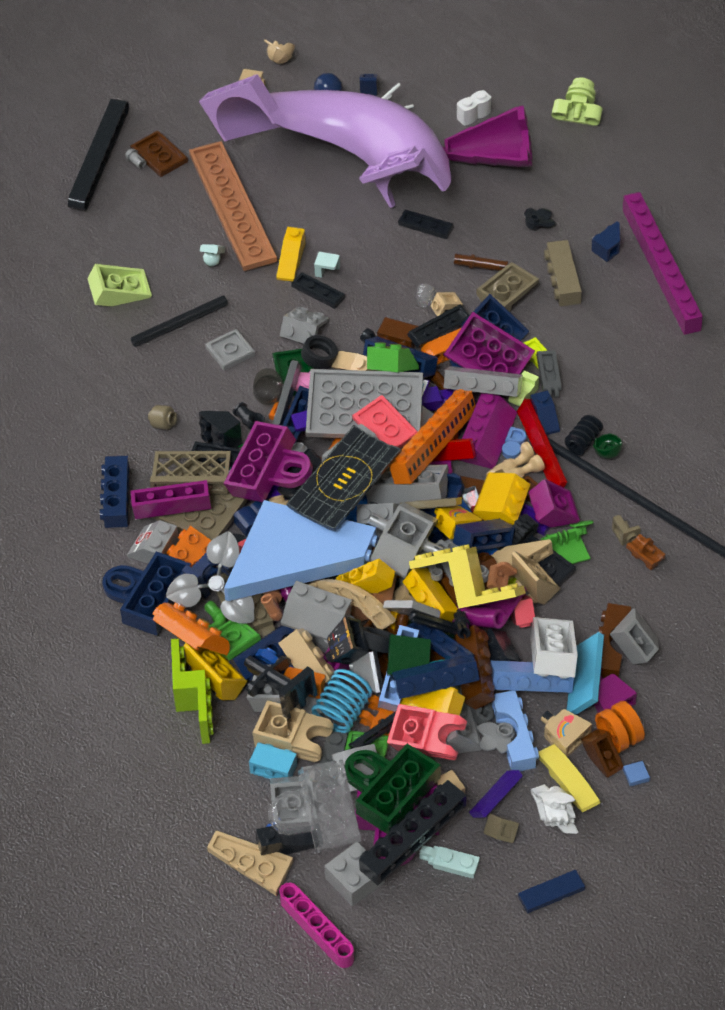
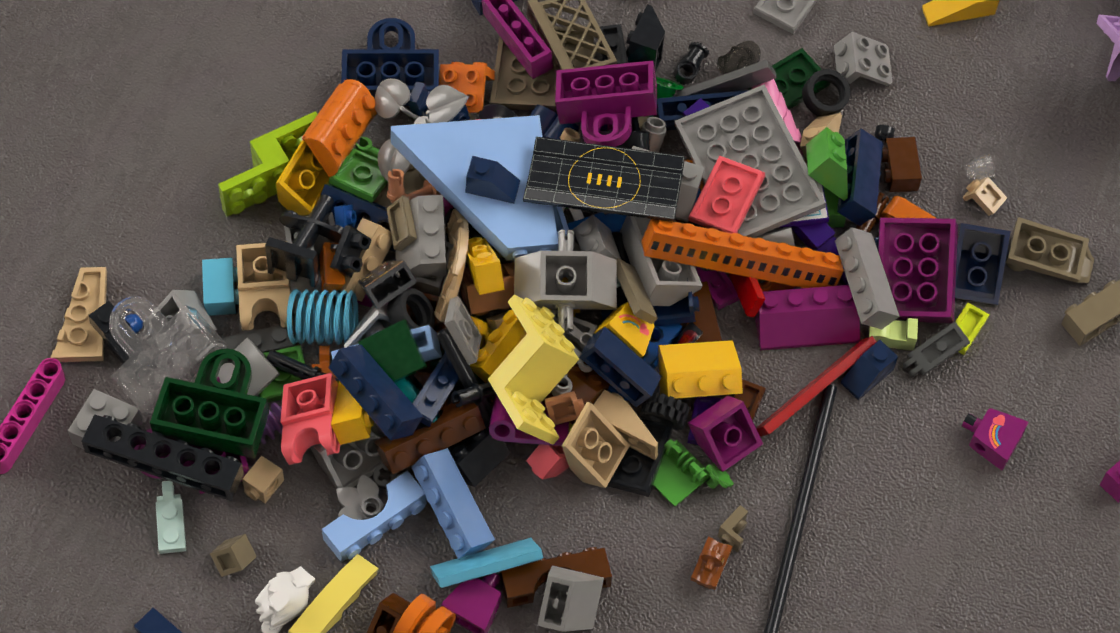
camera: 60 degrees right, 10 degrees up
(153, 538) = (462, 46): light grey slope -> none
(300, 617) = (401, 223): none -> dark tan tile
(300, 650) = (348, 251): none -> black hips
(306, 543) = (491, 180): none -> dark blue slope
(318, 290) = (927, 56): black tile -> none
(326, 261) = (968, 44): light aqua panel -> none
(425, 224) = (1102, 125): black tile -> none
(438, 326) = (937, 199): black tile -> none
(479, 262) = (1070, 199): reddish brown pin -> none
(495, 794) = (277, 531): dark purple tile -> none
(510, 465) = (758, 363): tan piece -> none
(511, 449) = (796, 356): medium blue tile -> none
(517, 435) = (819, 354): medium blue tile -> none
(553, 647) = (497, 508): white brick -> none
(565, 730) = (398, 571): tan torso -> none
(583, 434) = (859, 424): black piece -> none
(608, 446) = (856, 460): dark green hair -> none
(627, 368) = (995, 435): none -> magenta torso

